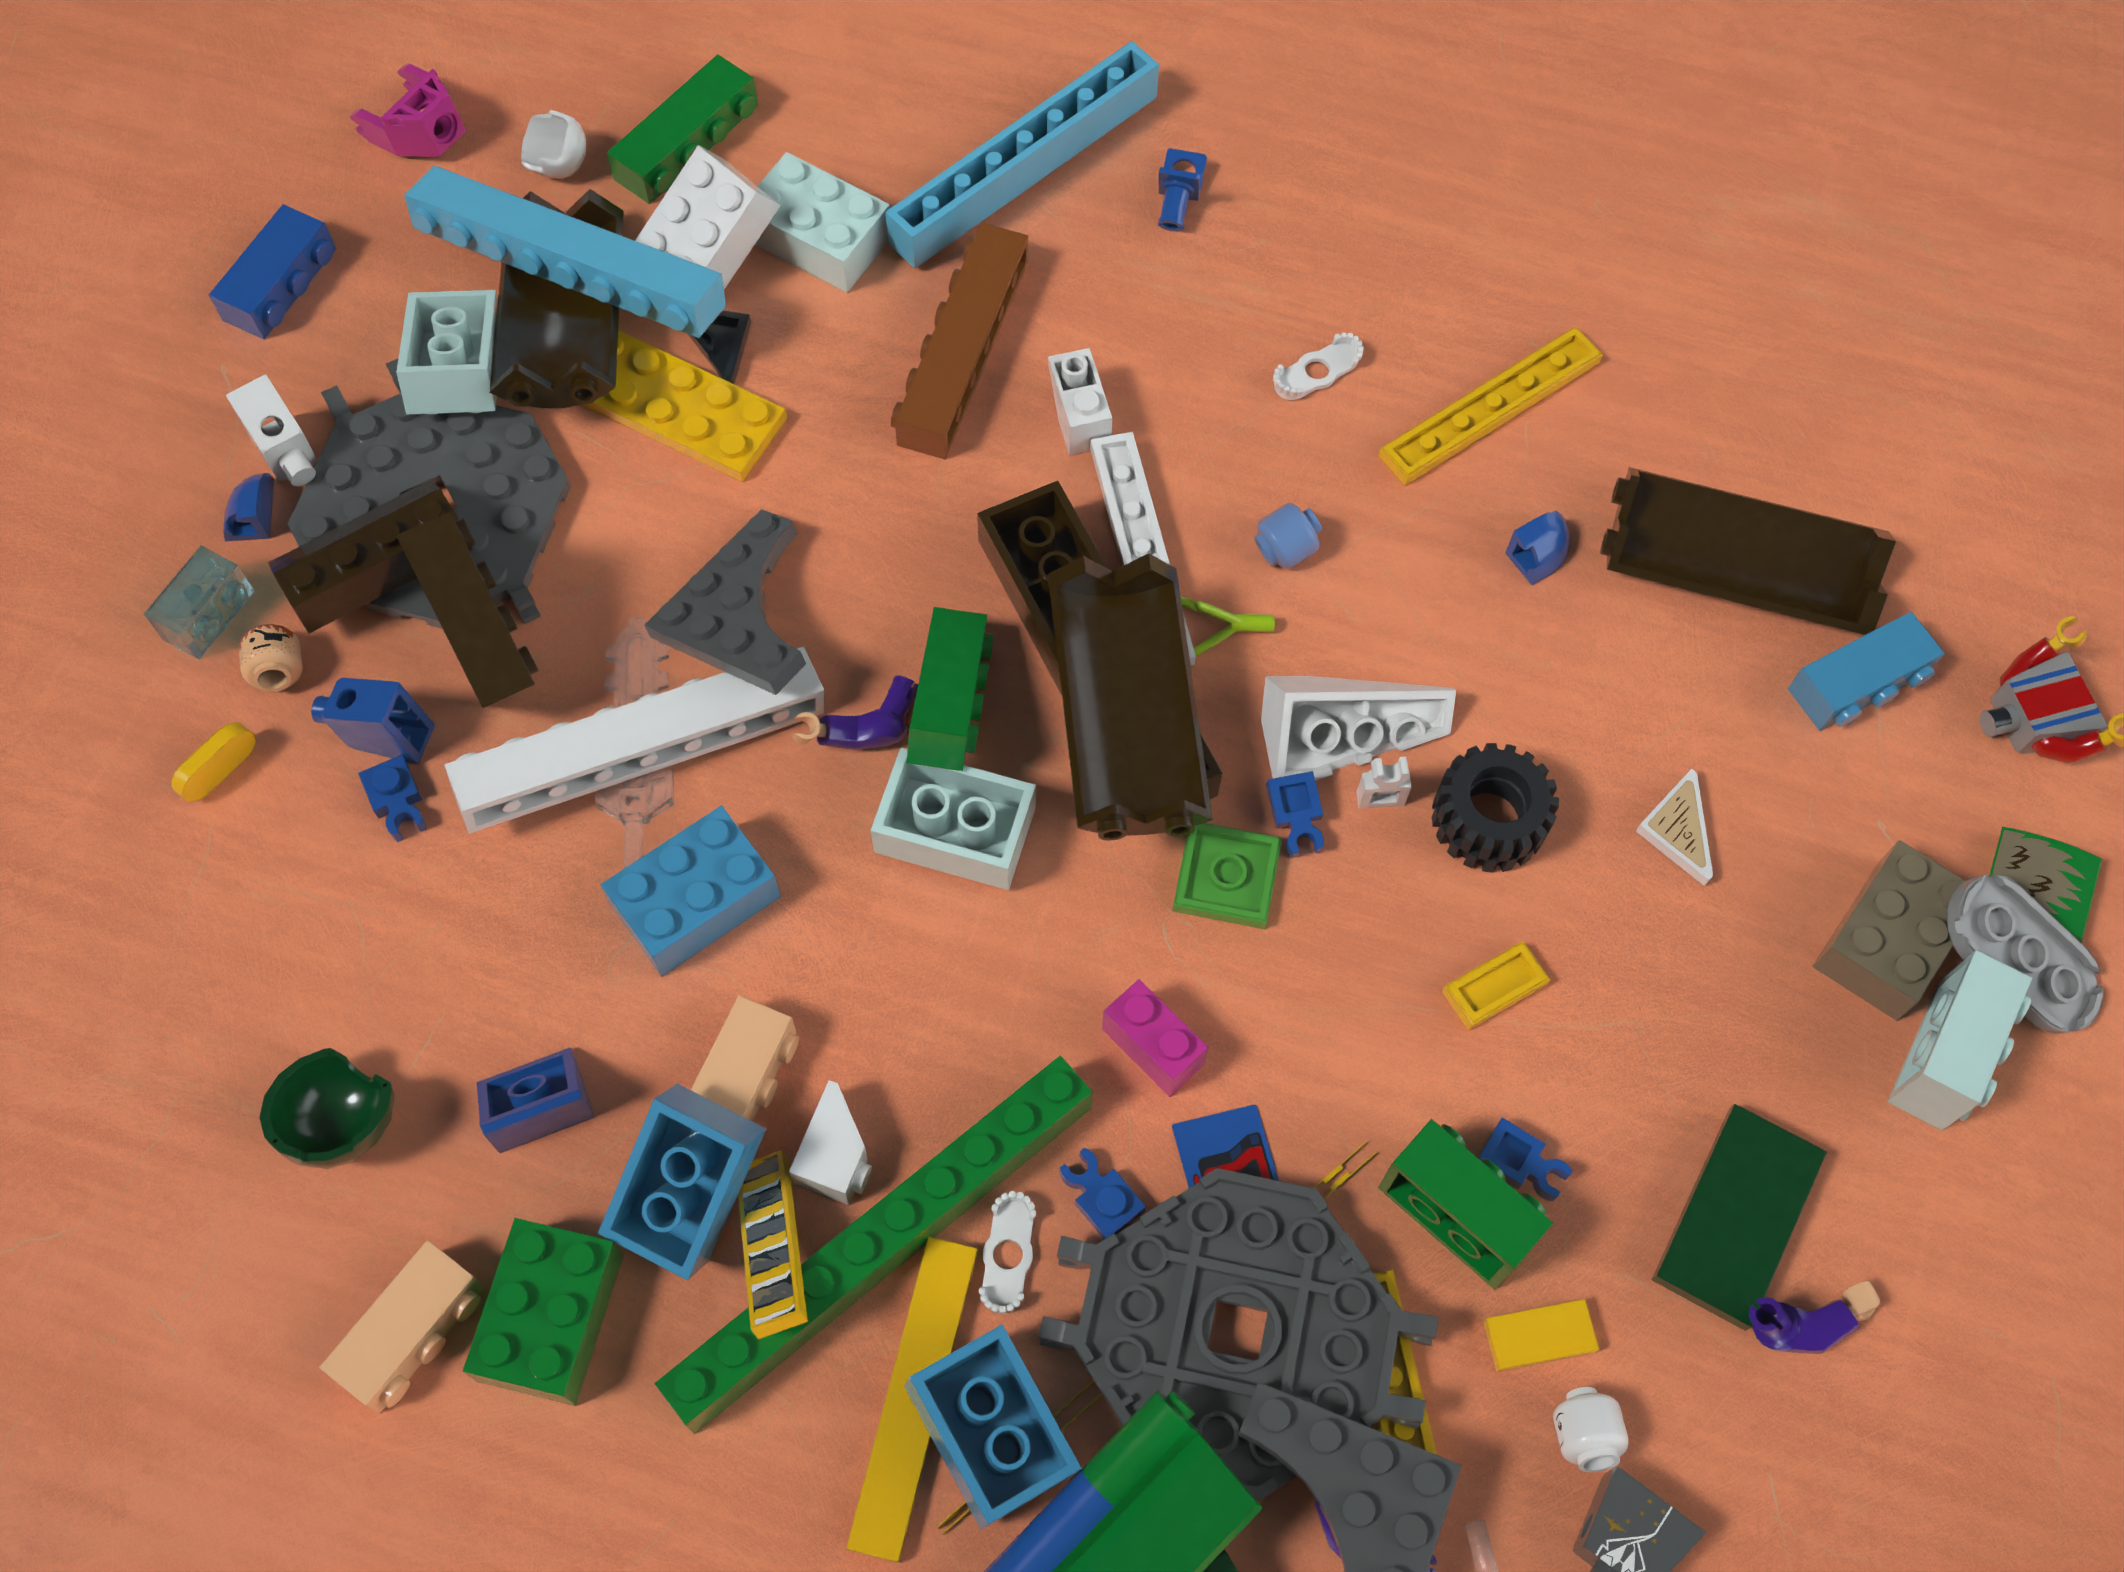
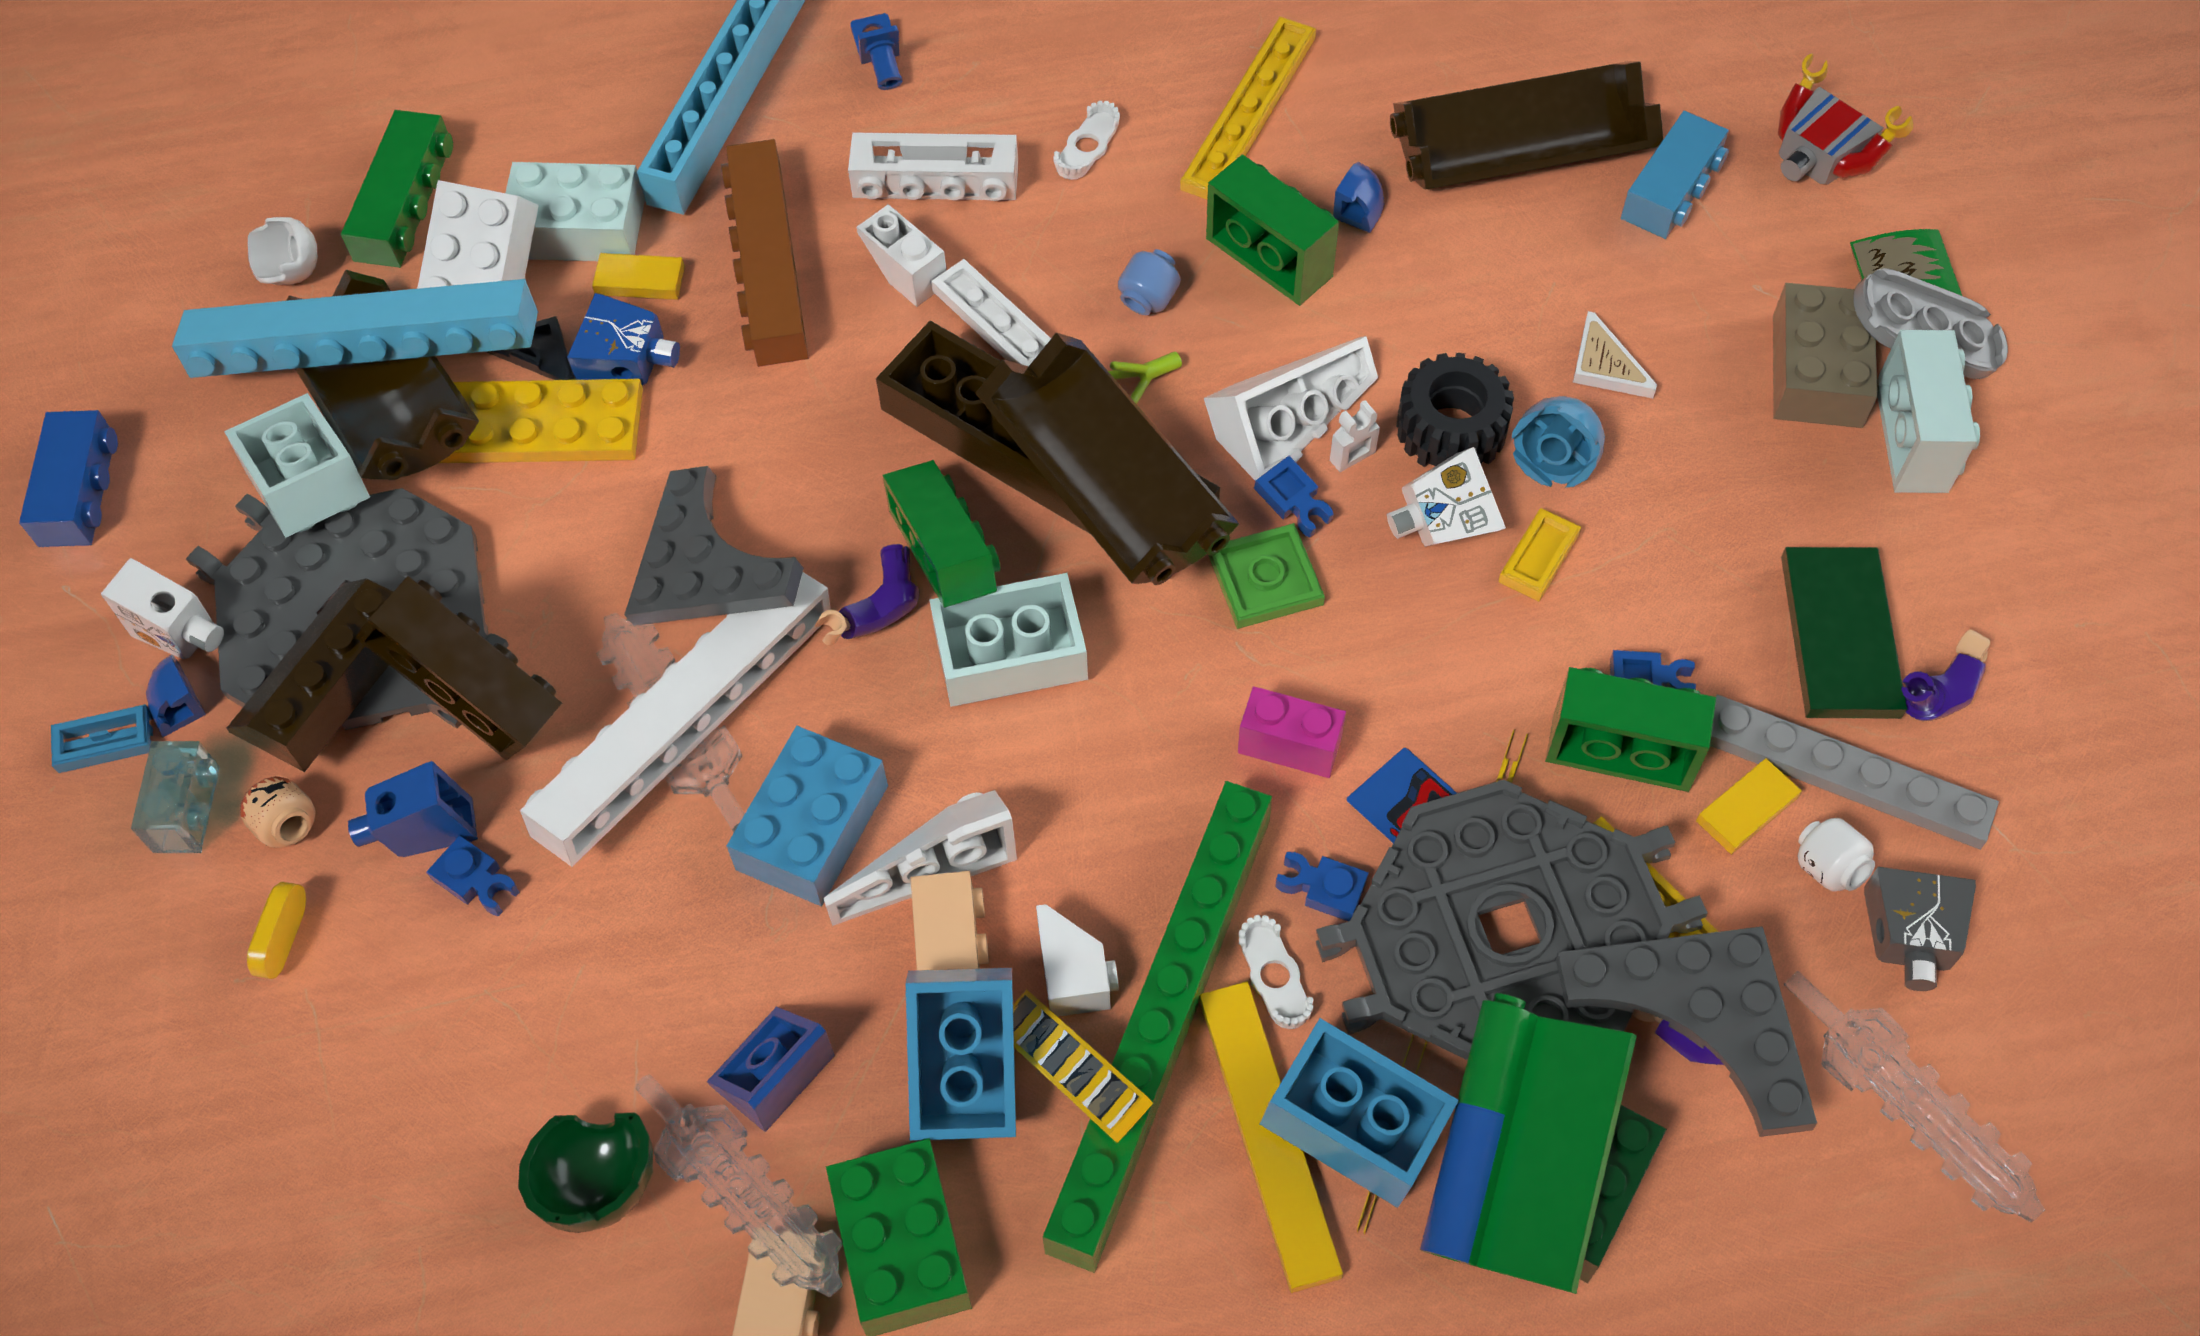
camera: 25 degrees left, 5 degrees down
(207, 529) = (101, 745): none -> dark azure tile
(406, 129) = (138, 288): dark pink piece -> none
(436, 1142) = (709, 1147): none -> clear bar
(785, 367) = (619, 342): none -> blue torso
(795, 982) = (963, 837): none -> white wedge
(842, 309) = (638, 276): none -> yellow tile
(1160, 328) = (933, 167): none -> white brick
(1430, 540) = (1271, 229): none -> green brick
(1431, 894) = (1448, 503): none -> white torso
(1577, 885) = (1559, 441): none -> dark azure cylinder
(1661, 1356) = (1853, 773): none -> light grey plate

